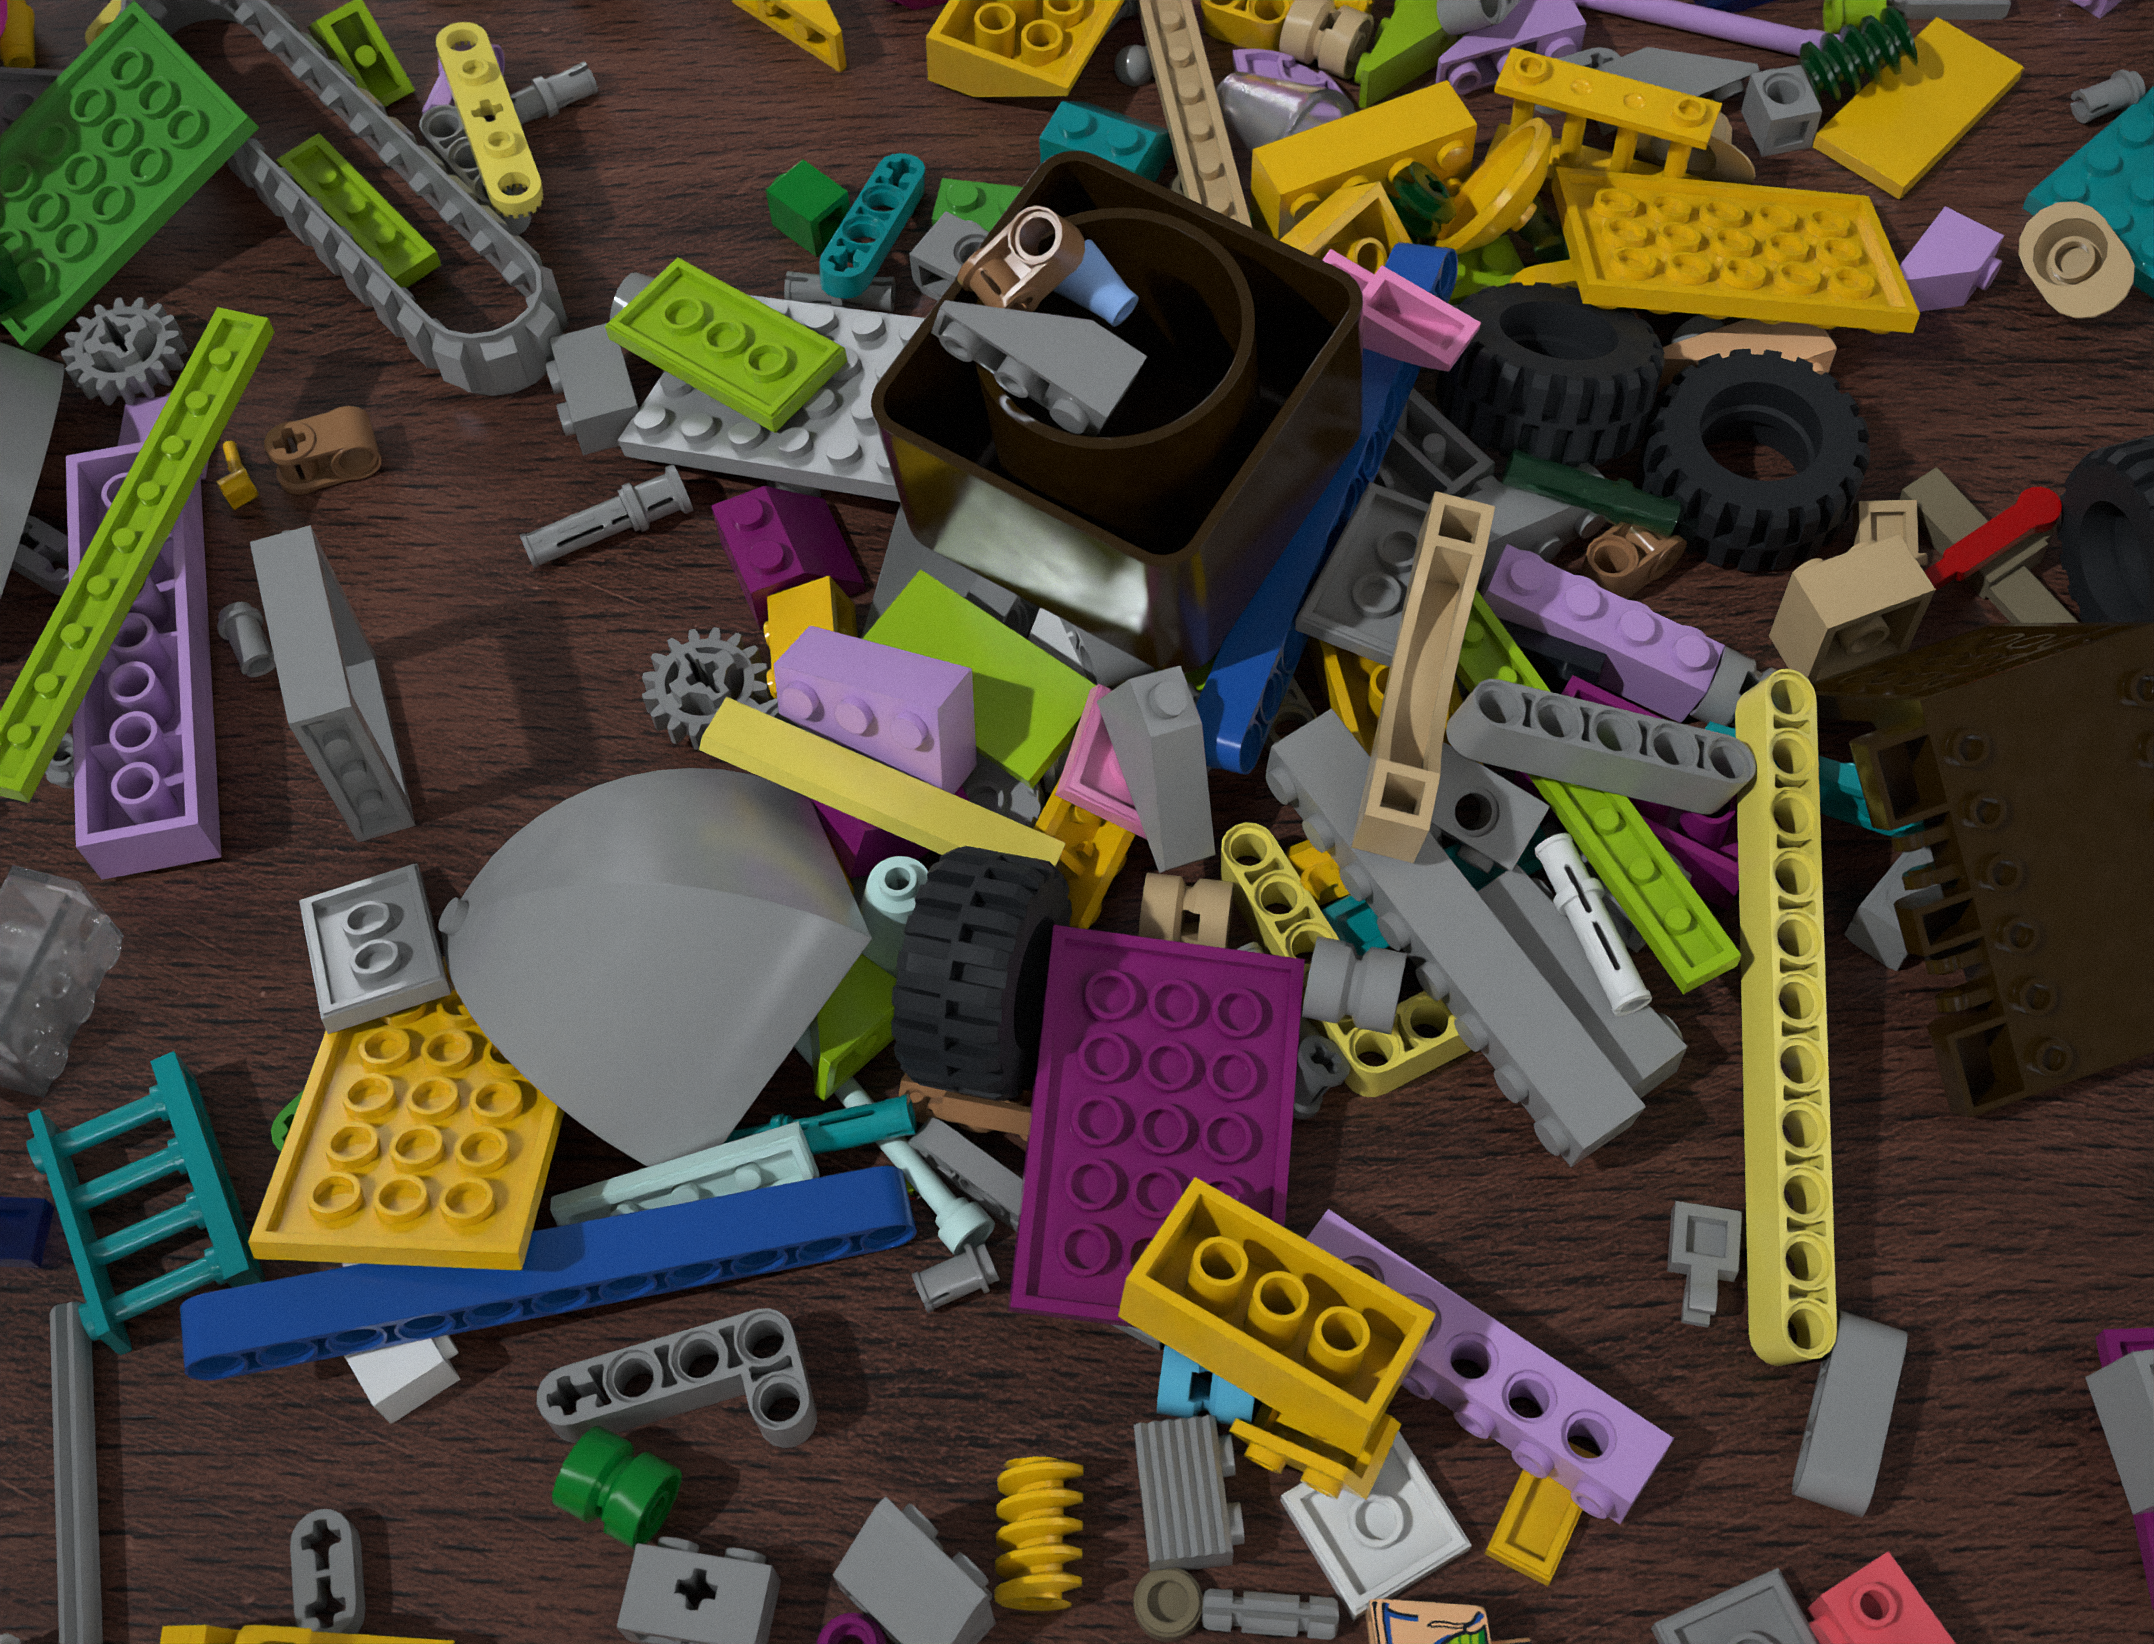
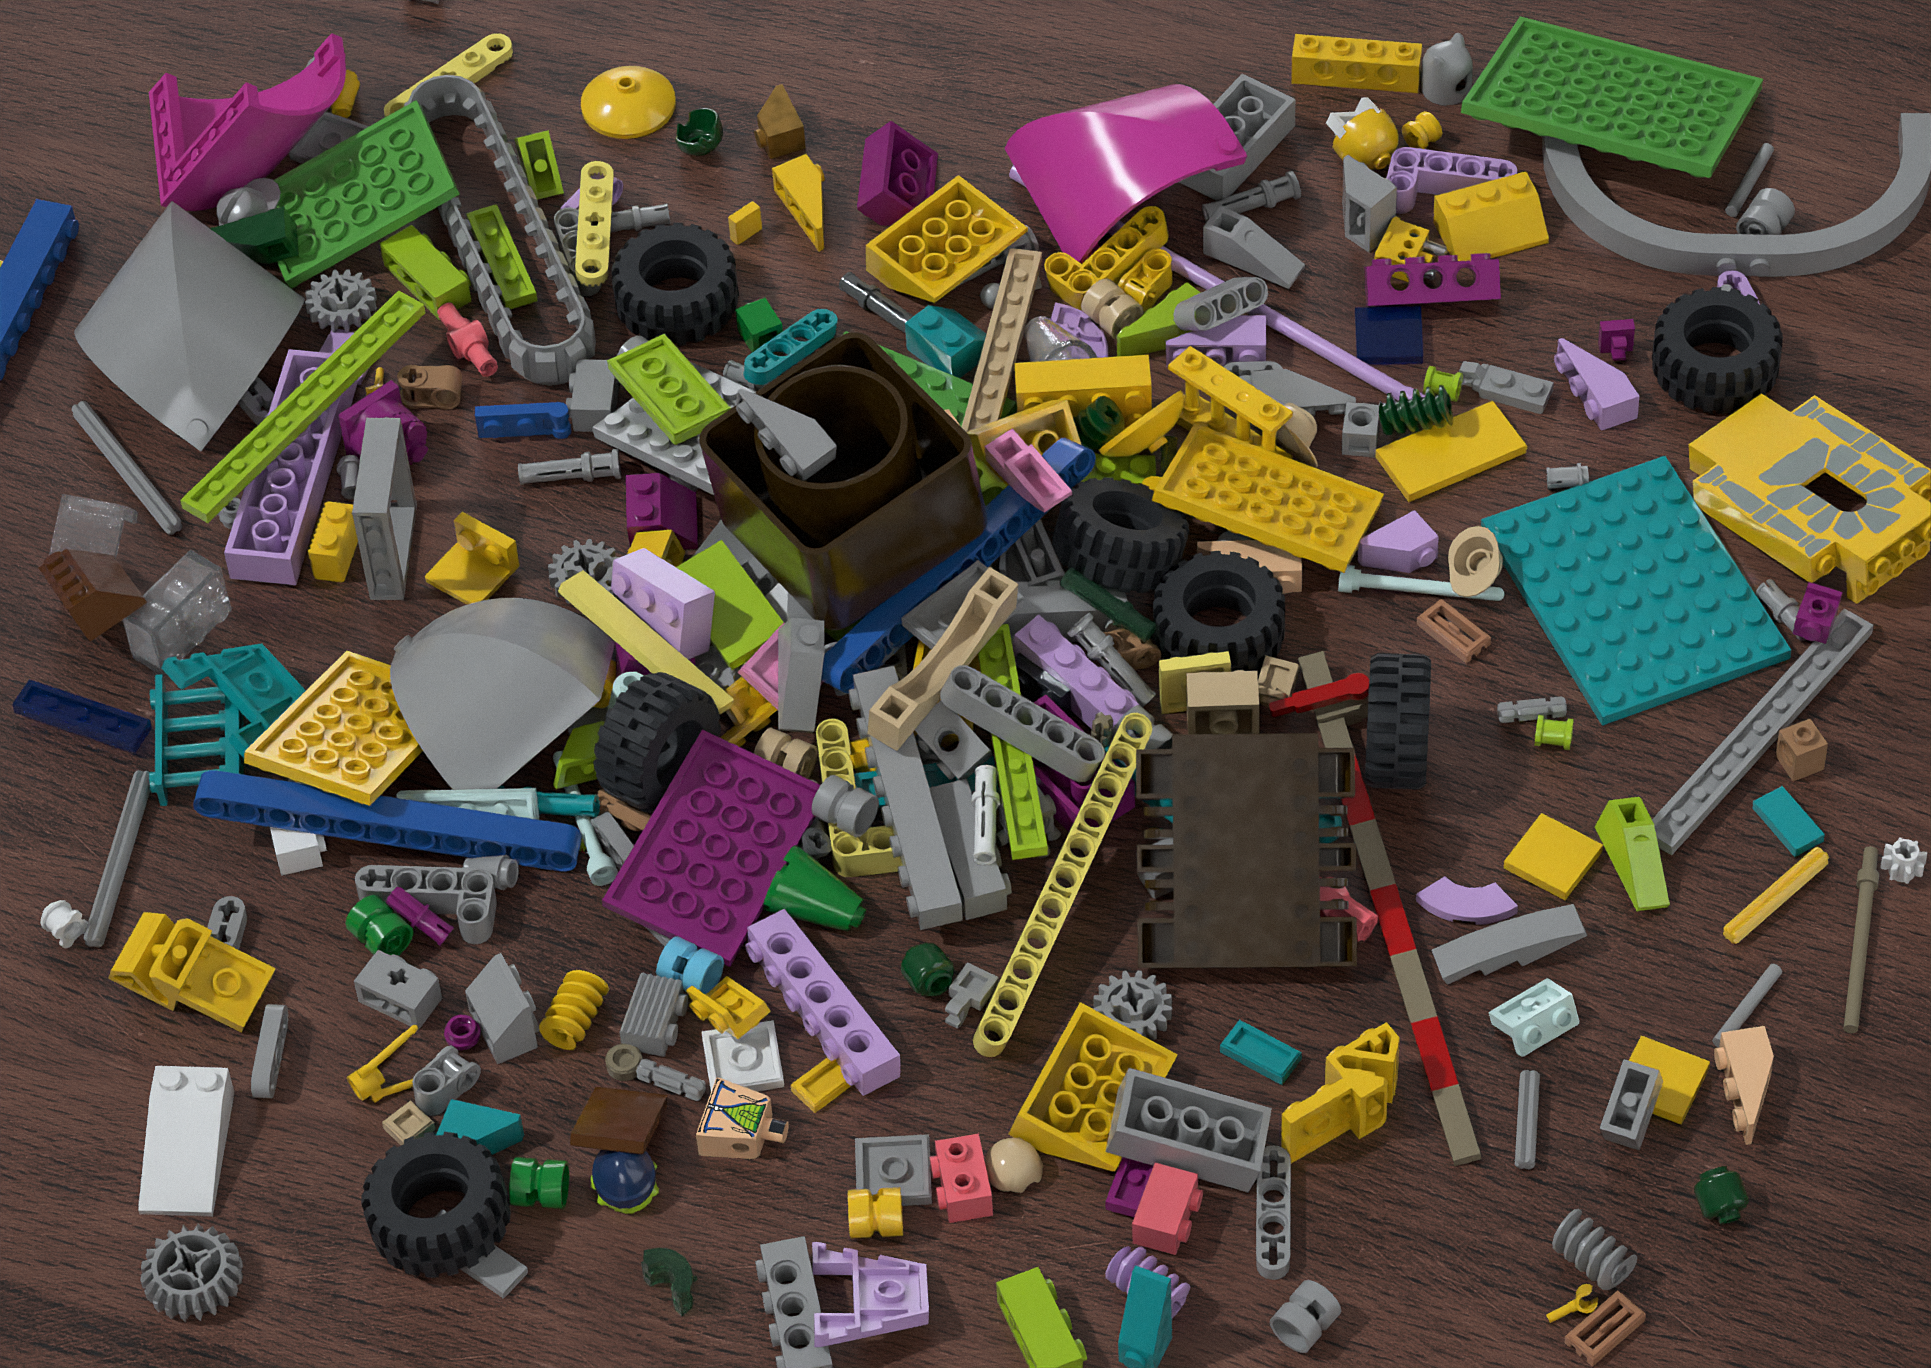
camera: 20 degrees right, 10 degrees down
(209, 1076) = (250, 681): none -> teal wing
(246, 267) = (425, 270): none -> lime brick
(259, 510) = (381, 404): none -> magenta piece
(261, 763) = (333, 542): none -> yellow brick
(355, 356) = (467, 339): none -> coral pin
(373, 948) = (357, 649): light grey tile -> none
(498, 461) = (523, 420): none -> blue plate
(514, 728) = (475, 563): none -> yellow bracket
(641, 129) = (674, 254): none -> black tyre
(681, 1437) = (419, 915): none -> magenta axle
(715, 58) = (745, 223): none -> yellow tile
(784, 1288) = (500, 867): none -> light grey cone
(956, 1277) = (586, 890): light grey pin -> none
(959, 119) = (871, 298): none -> dark grey pin
(1010, 270) = (796, 381): medium nougat piece -> none
(1098, 287) = (831, 400): light blue cone -> none
(1275, 1315) = (724, 934): yellow brick -> none
(1361, 1160) = (813, 894): none -> green cone
(1616, 1238) = (927, 969): none -> dark green head
(1618, 570) = (1101, 649): none -> light grey pin
(1695, 705) = (1102, 728): none -> dark tan axle
(1764, 575) = (1174, 677): none -> light yellow plate
(1850, 1415) = (1001, 1080): light grey beam -> none
(1897, 346) = (1353, 579): none -> light aqua piece
(1957, 1577) = (1013, 1165): none -> tan hair
(1994, 1220) = (1149, 1000): none -> light grey gear
(2002, 1388) = (1078, 1088): none -> yellow slope
(2085, 383) = (1449, 634): none -> nougat tile

